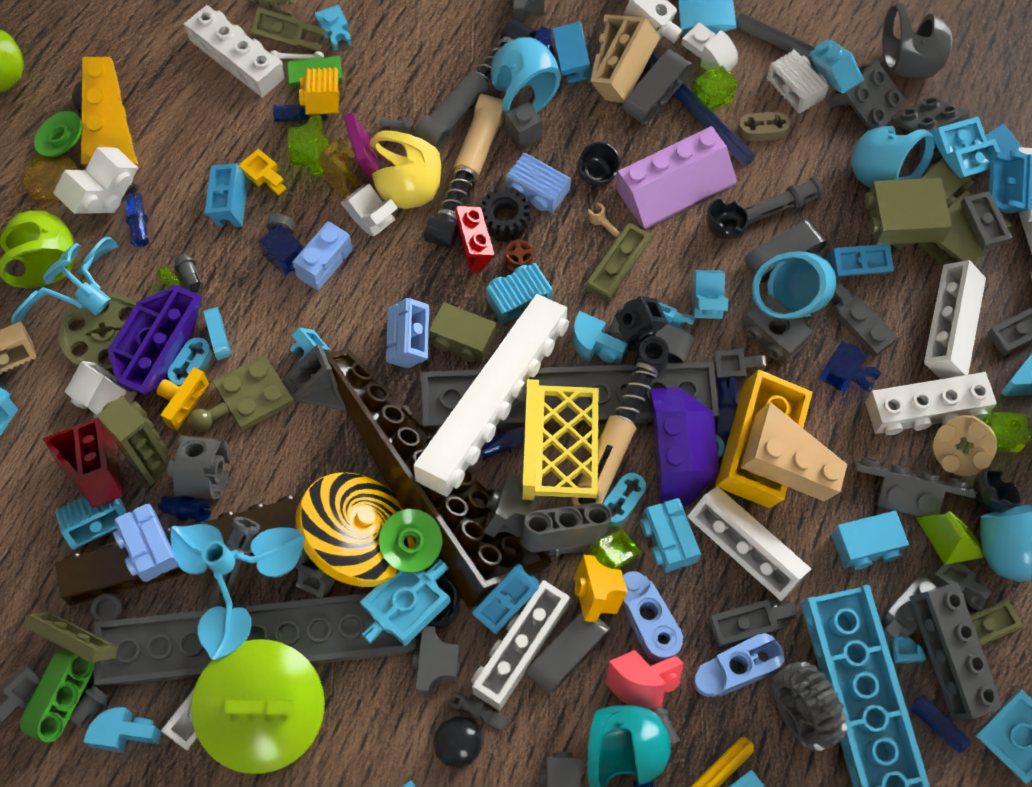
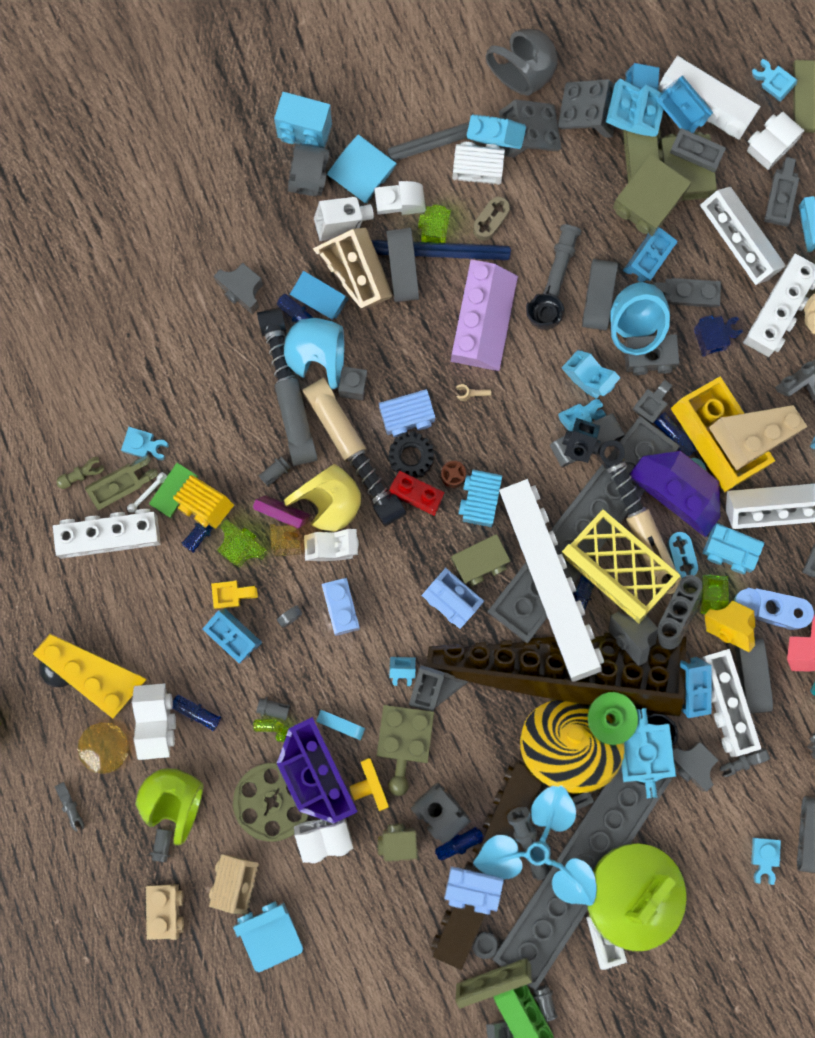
camera: 50 degrees left, 15 degrees up
(58, 134) = (65, 719): bright green dish -> none
(83, 524) = (414, 909): medium azure brick -> none
(88, 295) = (231, 799): medium azure plant -> none
(88, 460) = (377, 883): dark red wedge -> none
(115, 727) = (574, 997): medium azure brick -> none
(186, 361) = (340, 762): medium azure beam -> none
(280, 249) = (312, 630): clear blue brick -> none
(458, 741) = (753, 789): black hair -> none
(591, 340) = (554, 481): medium azure brick -> none
(598, 164) = (429, 359): black hair -> none
(618, 261) = (510, 409): olive tile -> none
(882, 152) = (597, 171): medium azure piece -> none

